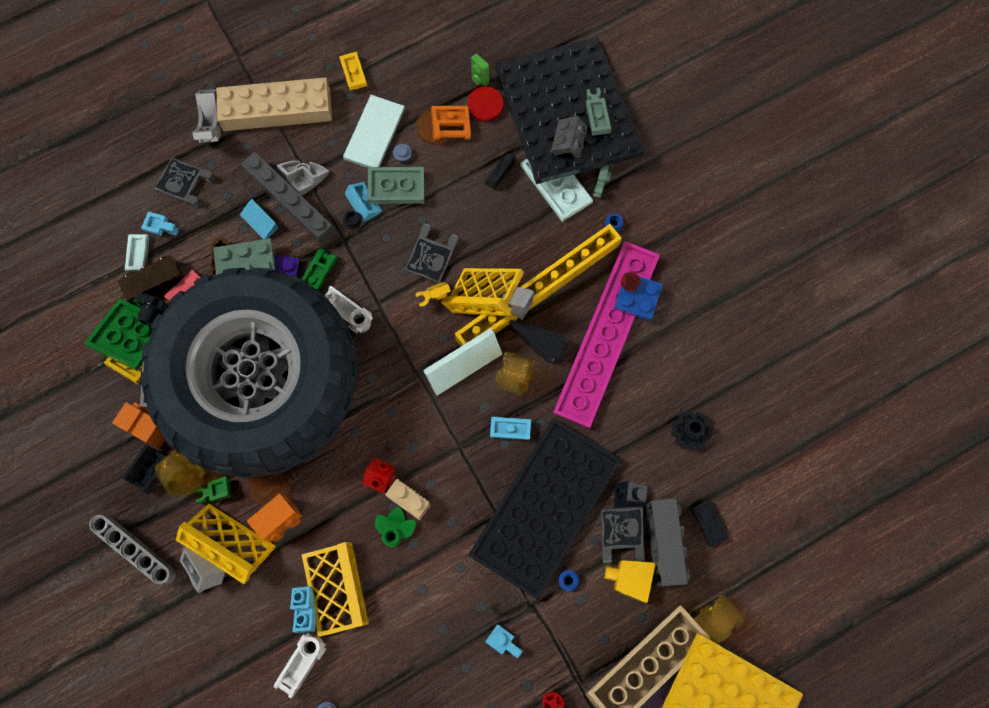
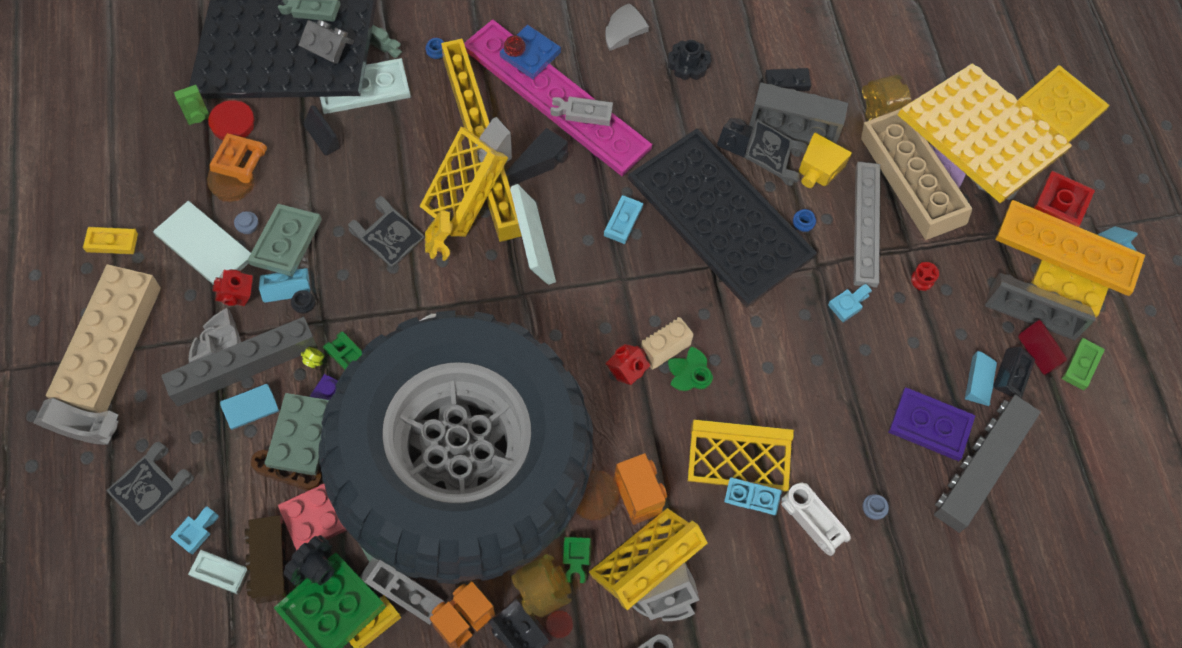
camera: 75 degrees left, 10 degrees down
(161, 497) = (559, 624): none -> clear red plate
(309, 245) = (312, 357): none -> neon yellow plate
(342, 174) = (233, 287): none -> red brick
(515, 373) = (567, 189): clear yellow brick -> none
(586, 636) = (867, 224): none -> light grey plate
(596, 361) = (583, 110): none -> light grey plate
(704, 364) = (624, 25): none -> light grey brick

